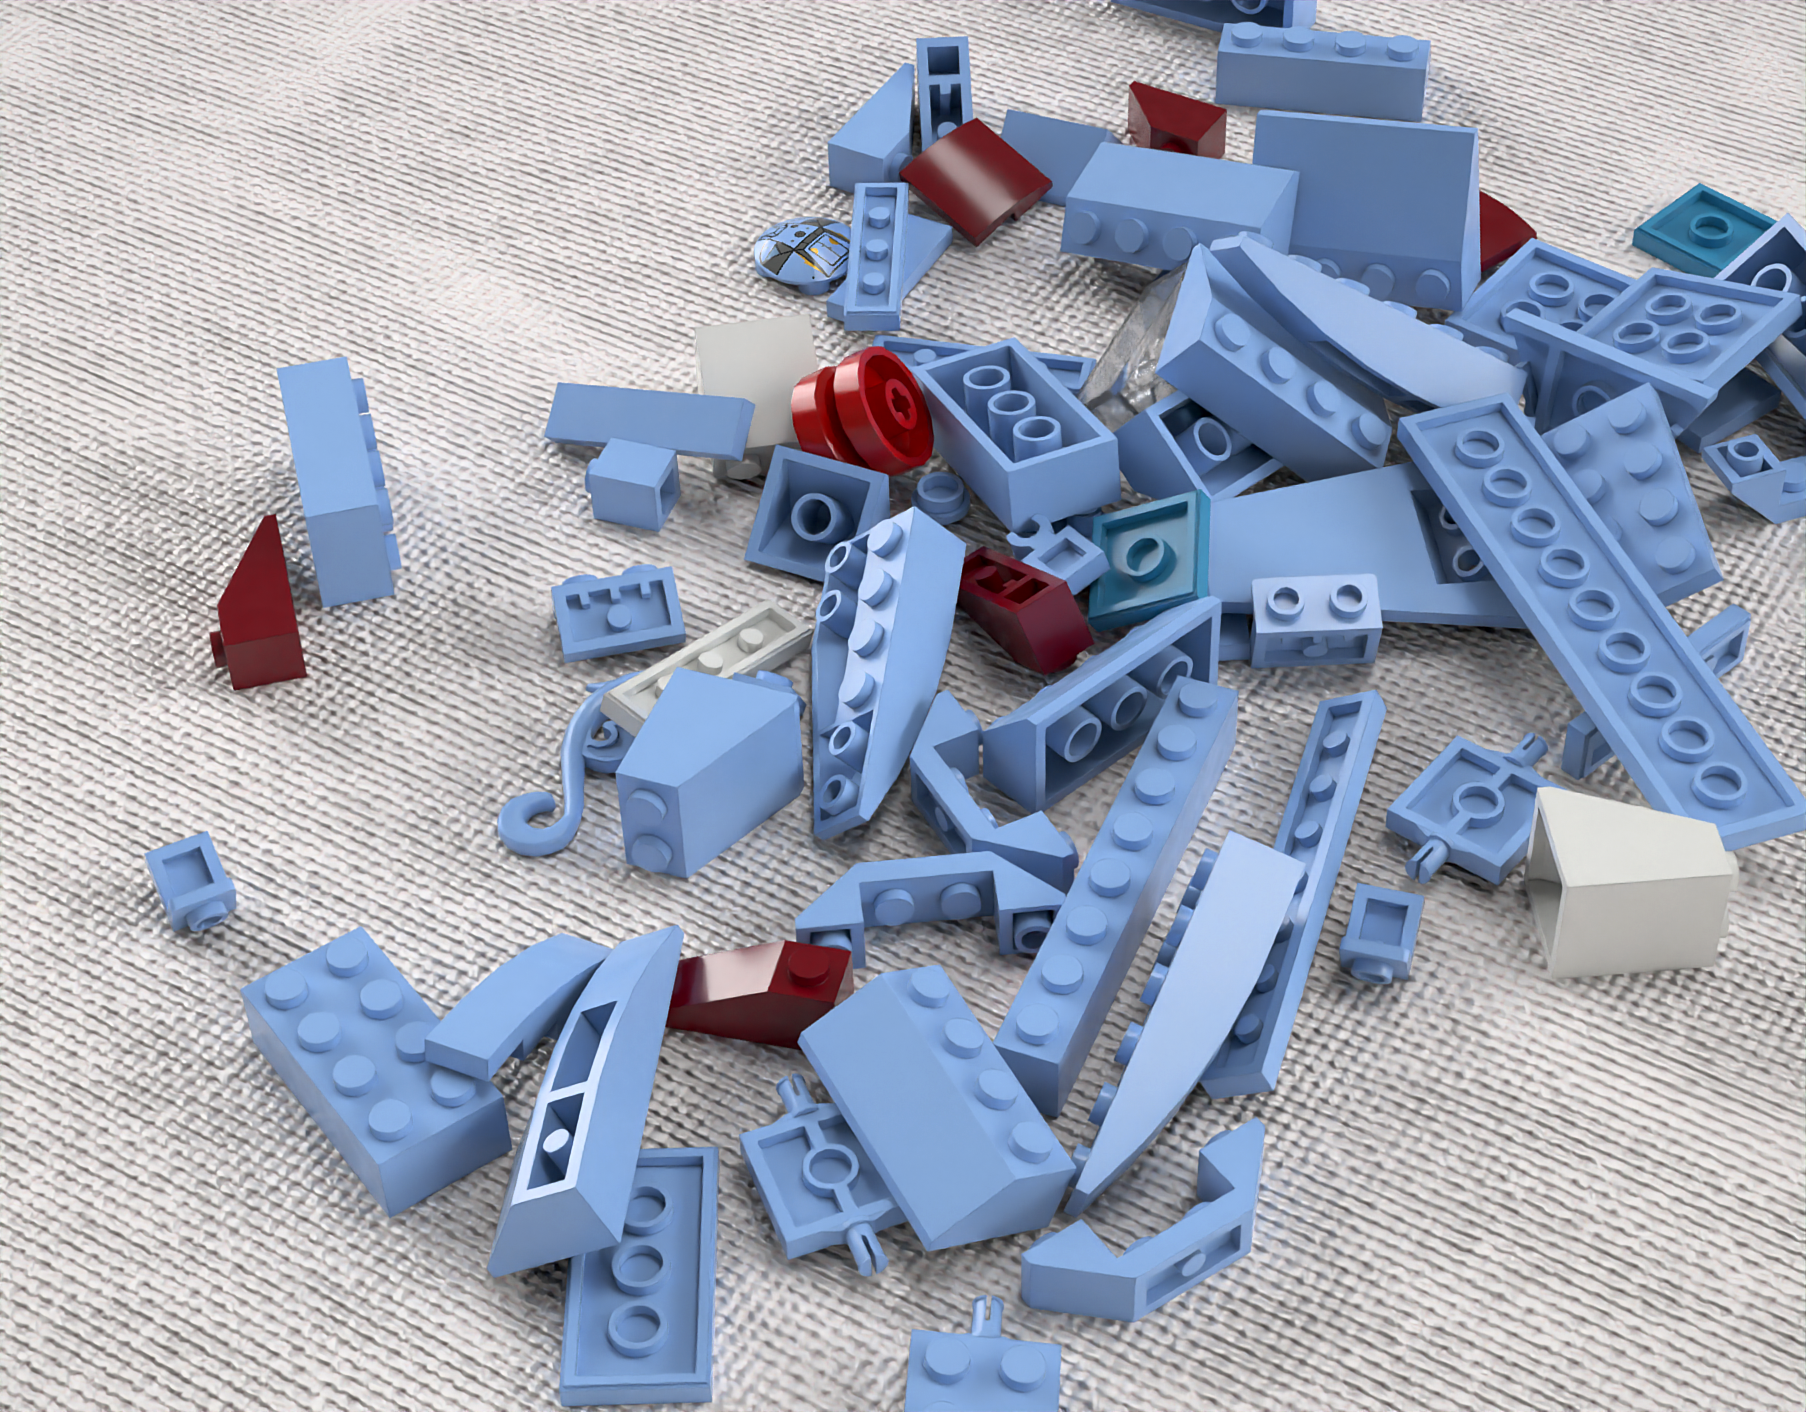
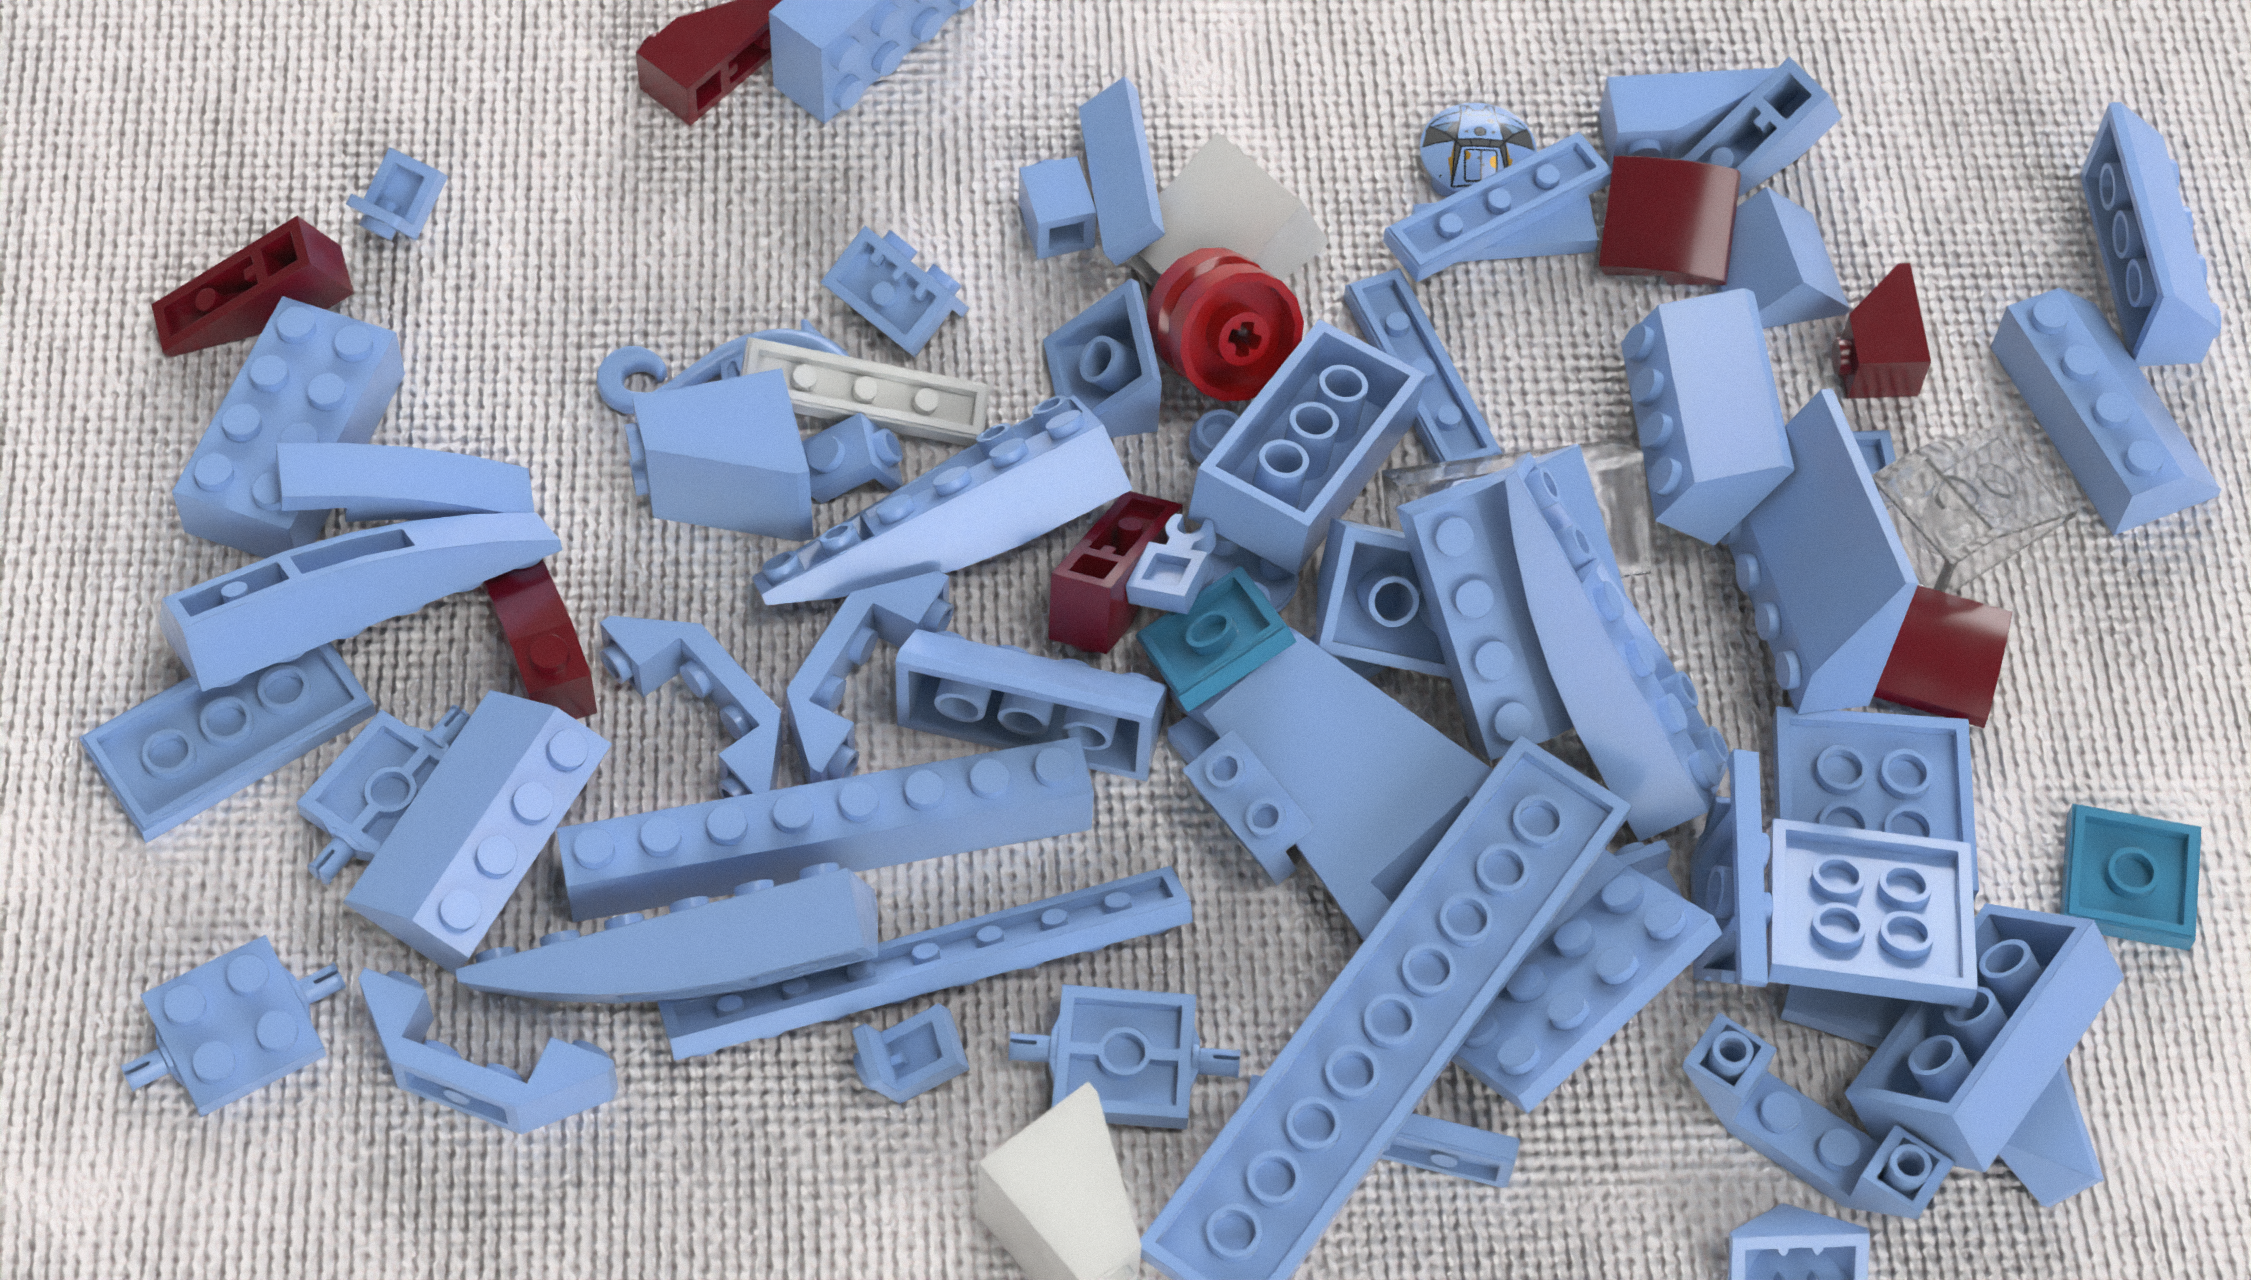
camera: 50 degrees right, 15 degrees up
(188, 1032) = (244, 289): none -> dark red slope

